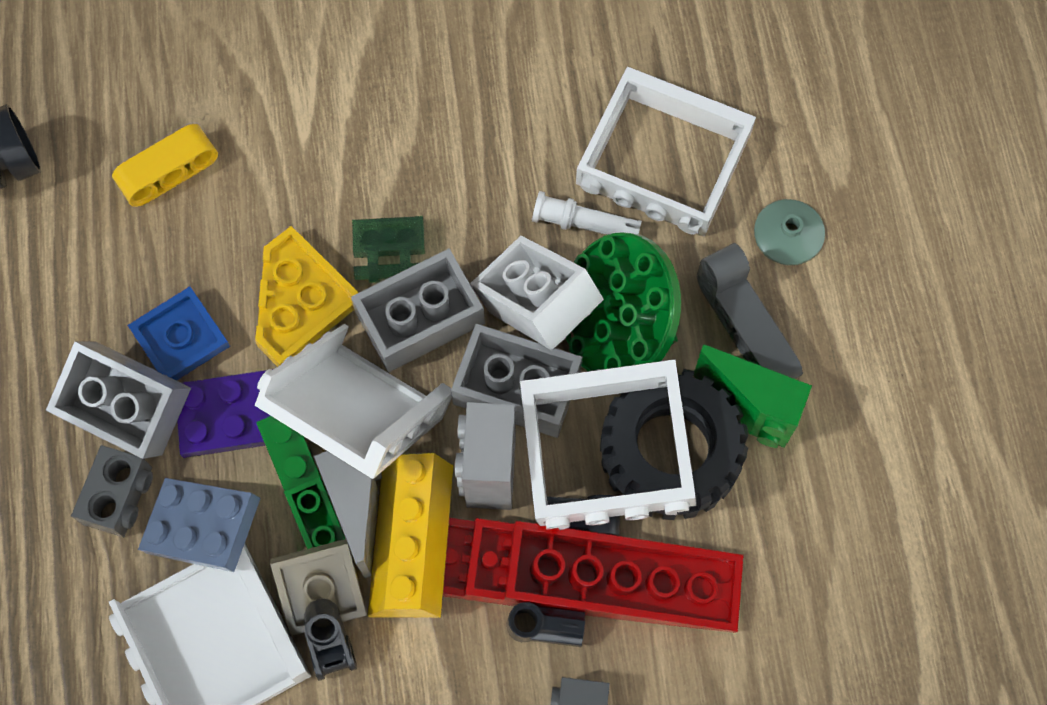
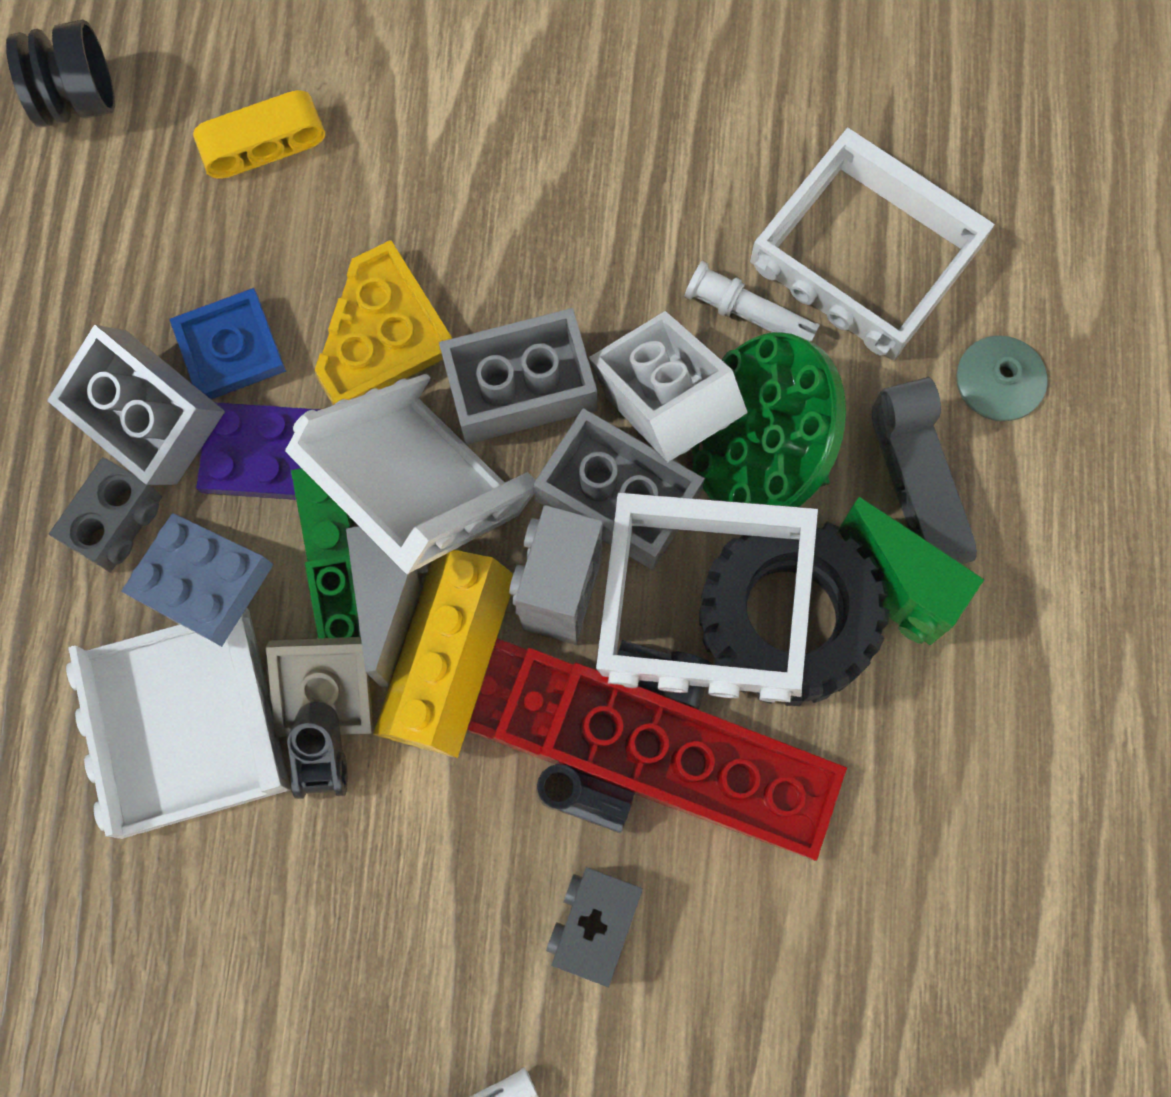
camera: 15 degrees right, 5 degrees up
(386, 238) = (500, 279): clear green plate -> none

